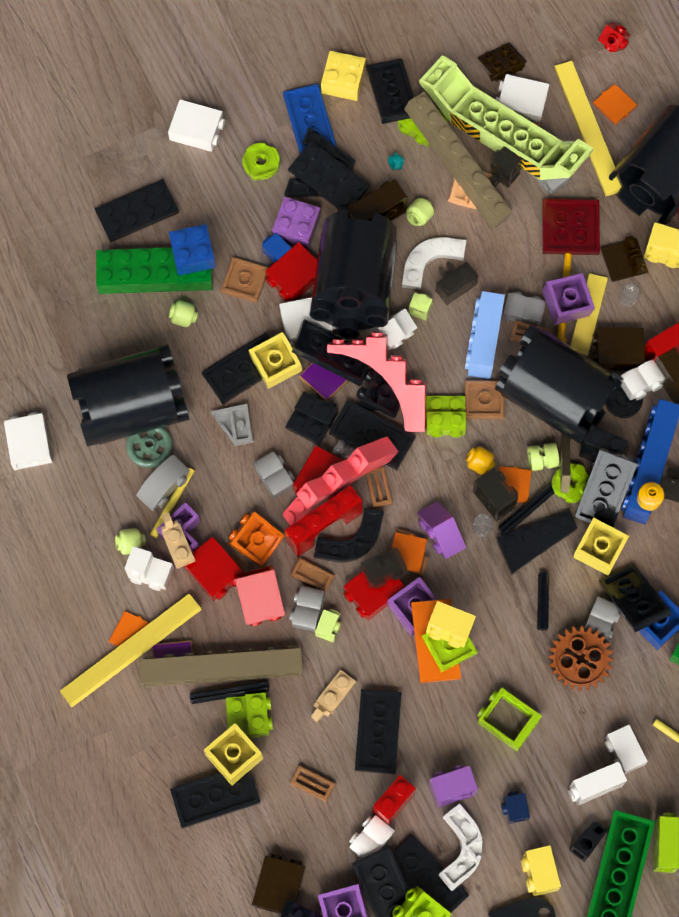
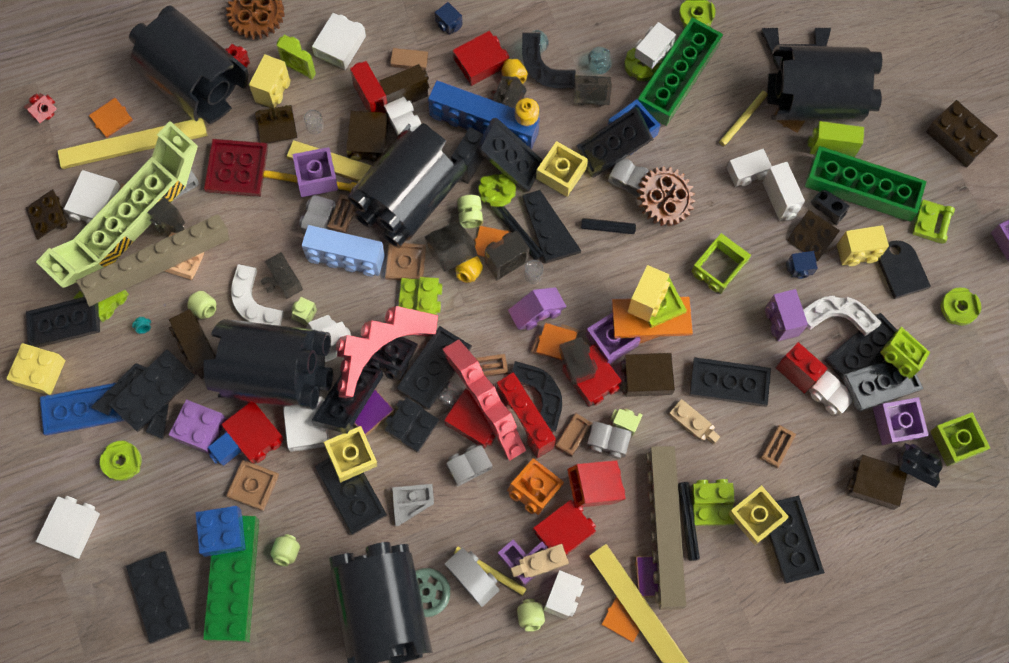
camera: 90 degrees left, 0 degrees up
(379, 645) = (648, 374): none -> dark brown brick
(500, 438) = (451, 245): none -> clear smoke brick
(552, 821) = (813, 234): none -> dark brown hinge
(565, 472) = (485, 186): dark tan tile -> none

